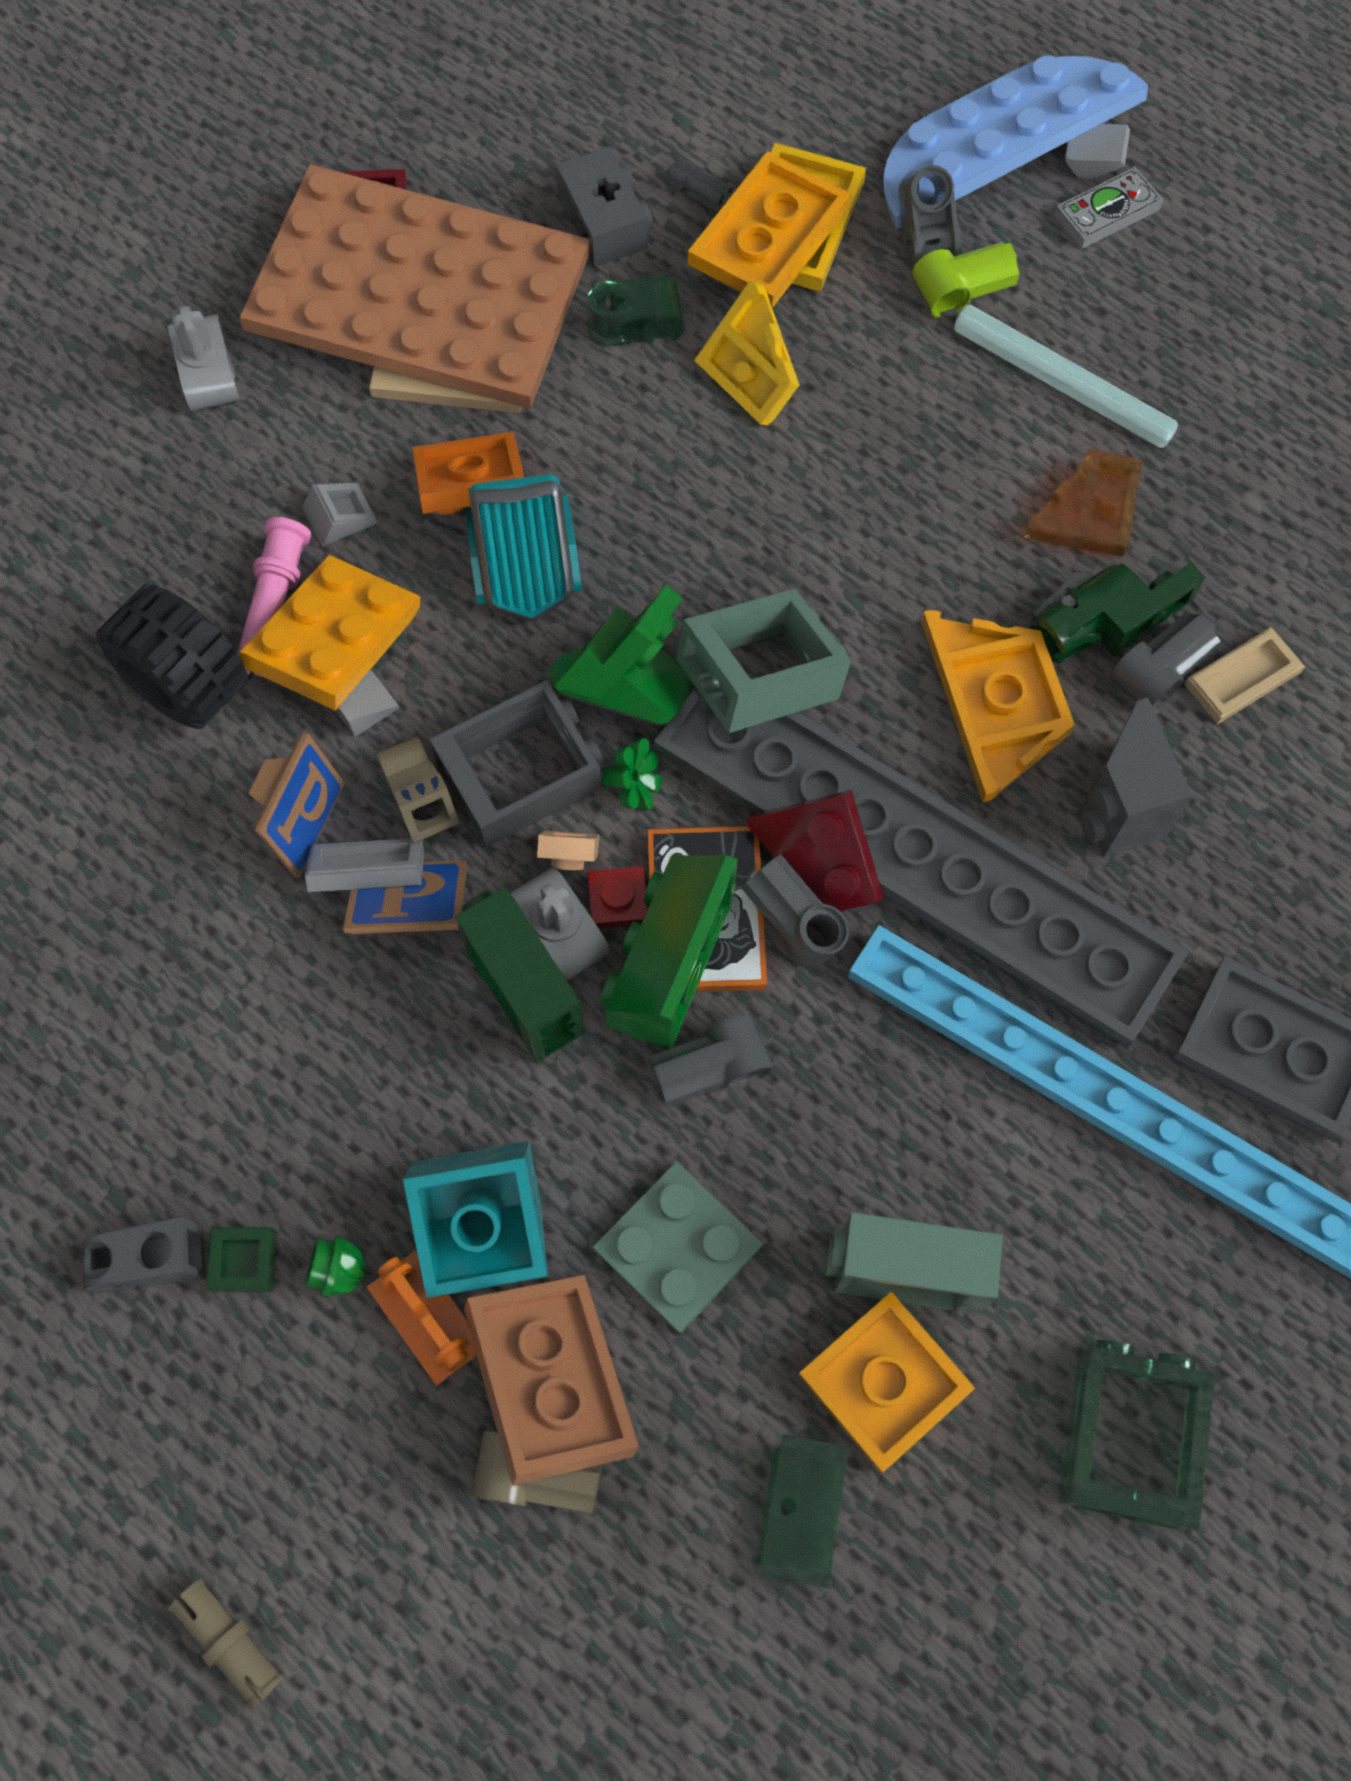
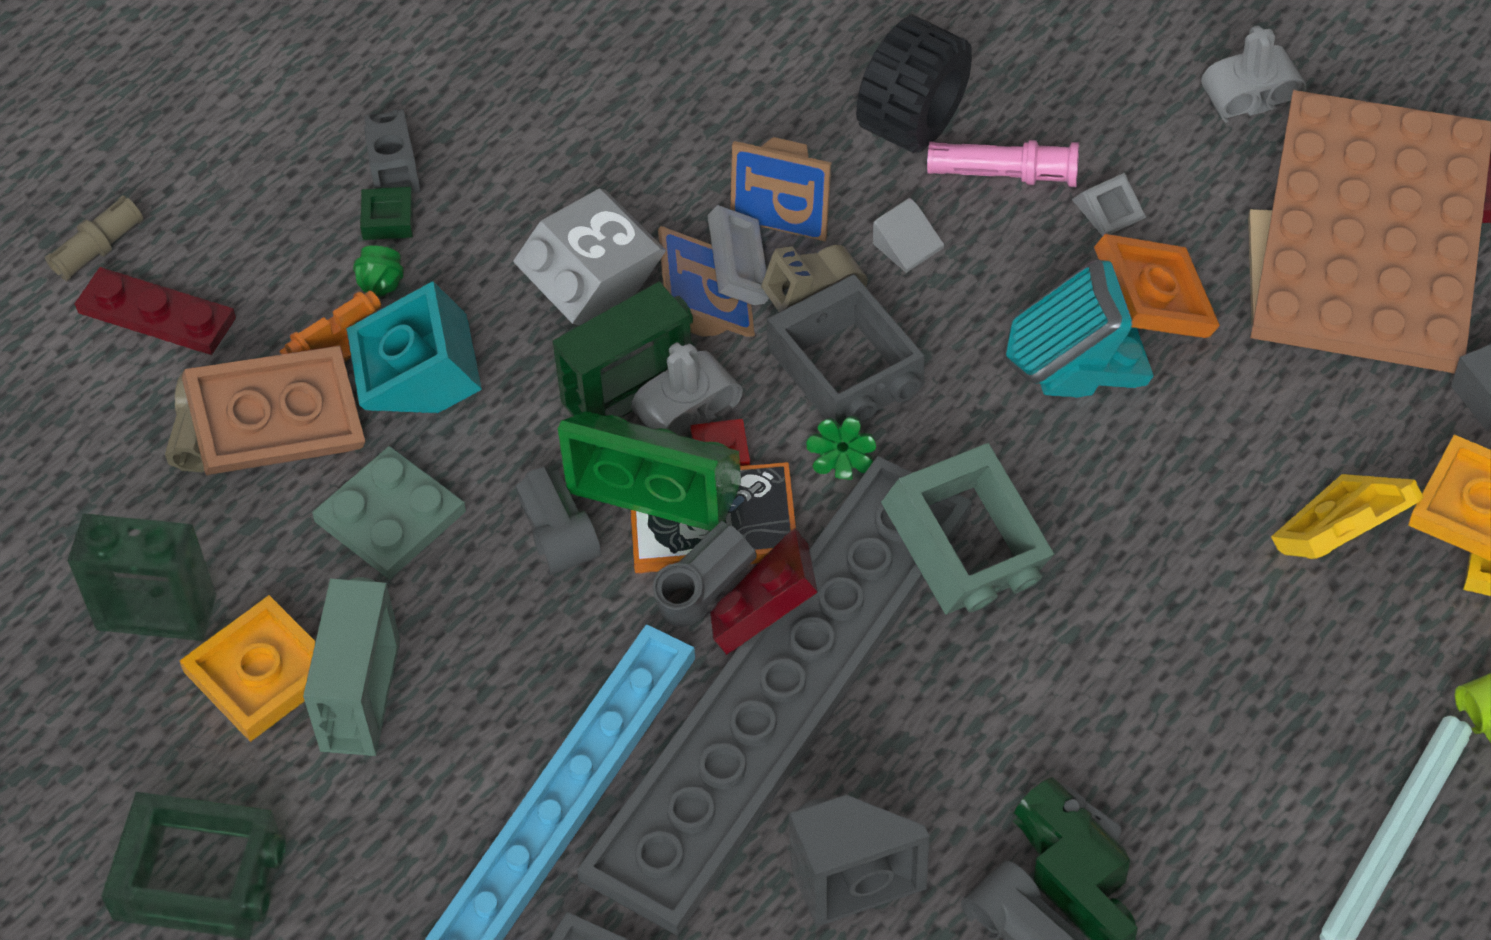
camera: 90 degrees right, 15 degrees down
(330, 632) = (968, 204): light orange plate -> none
(351, 1553) = (155, 310): none -> dark red plate
(371, 1010) = (589, 256): none -> light grey slope
(568, 849) = (763, 398): light nougat plate -> none
(626, 667) = (948, 416): green piece -> none
(640, 311) = (1389, 413): clear green piece -> none
(999, 696) = (960, 760): light orange wing -> none
(1092, 506) = (1220, 855): clear orange wing -> none

